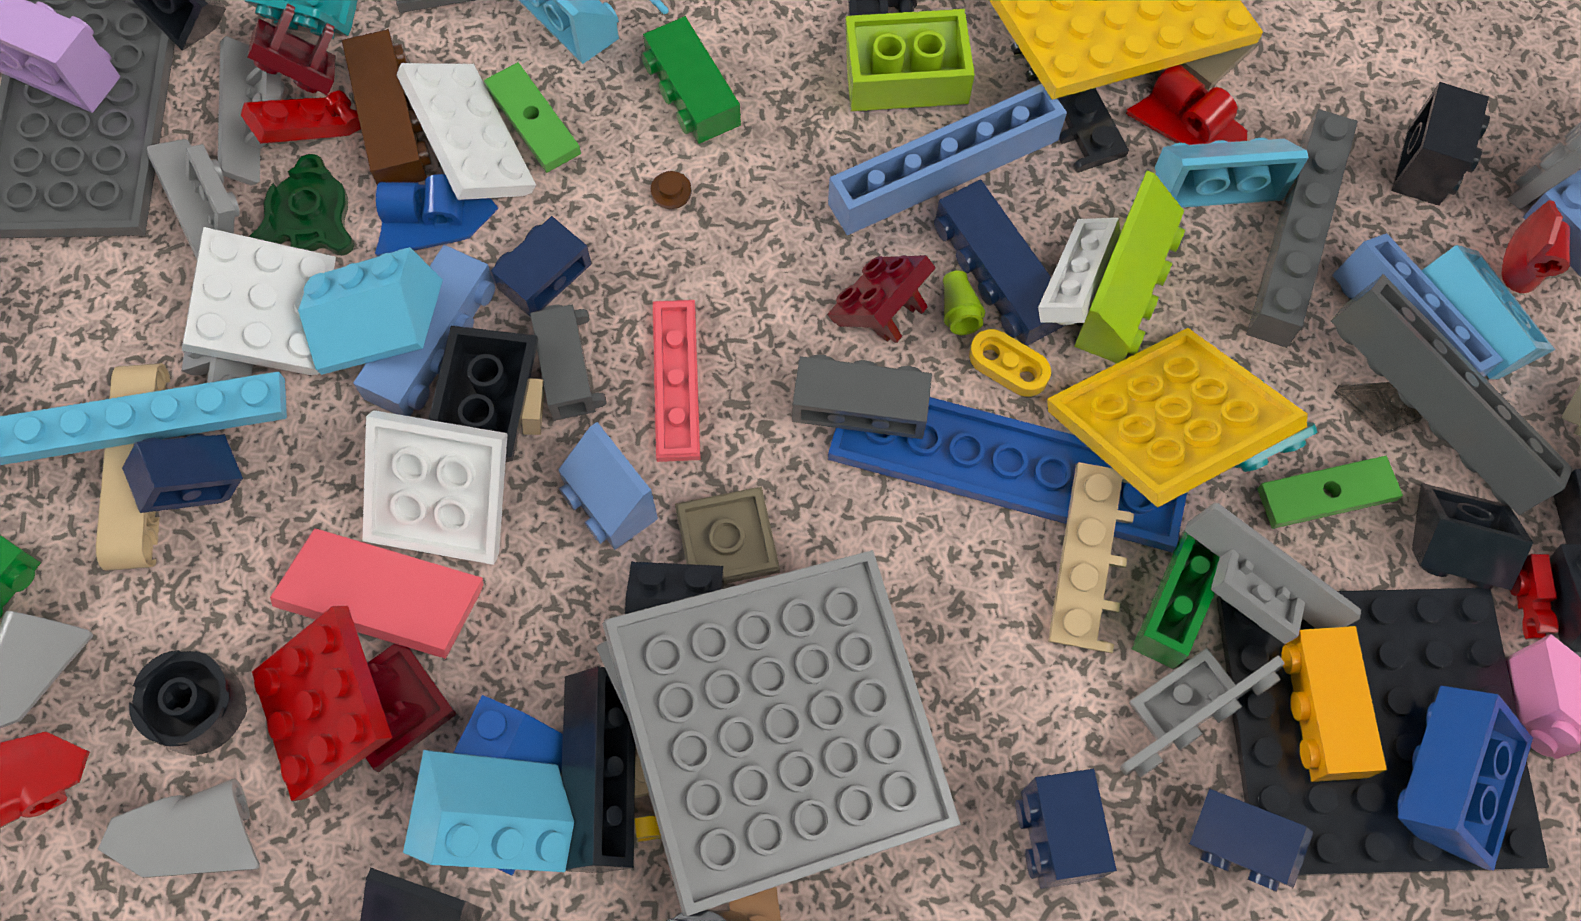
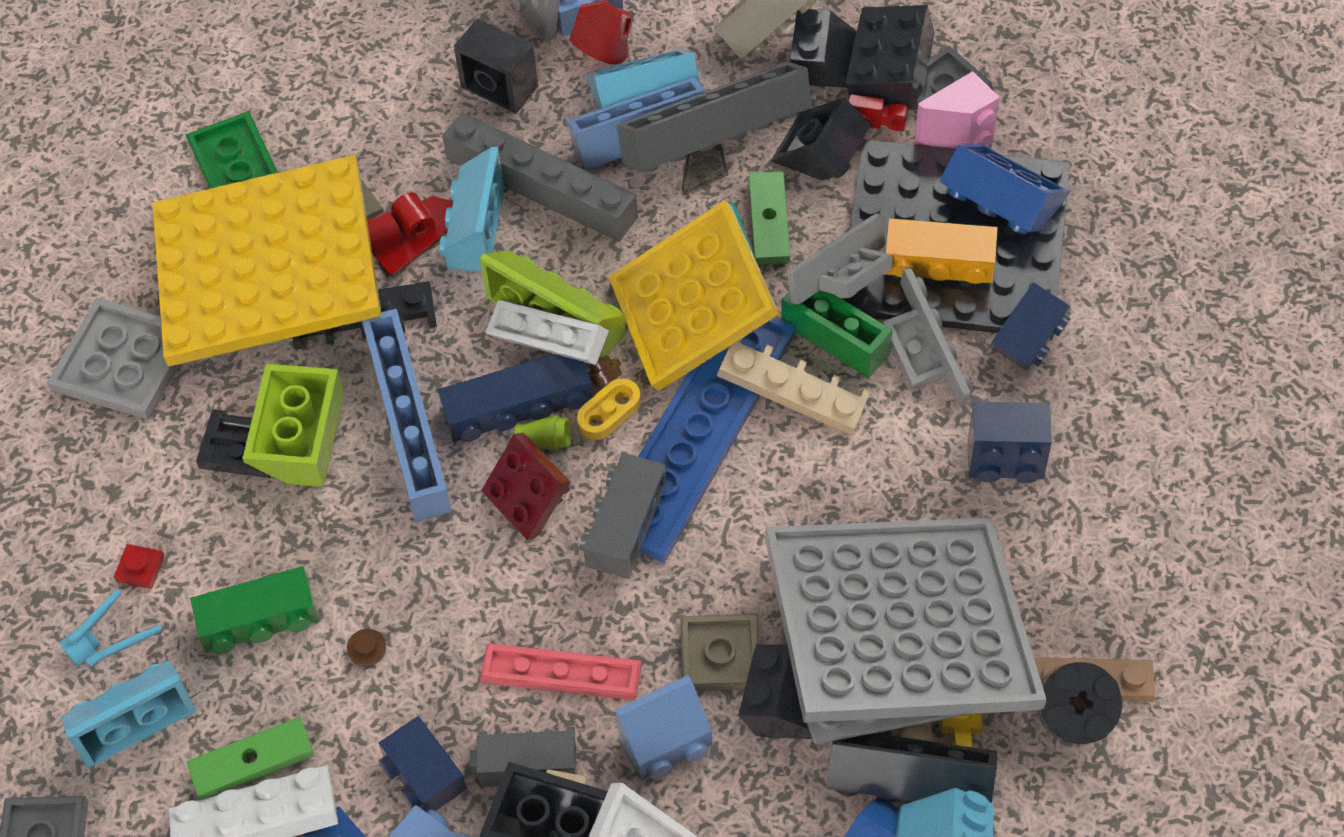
camera: 75 degrees left, 10 degrees down
(1057, 347) = (605, 370): none -> reddish brown plate

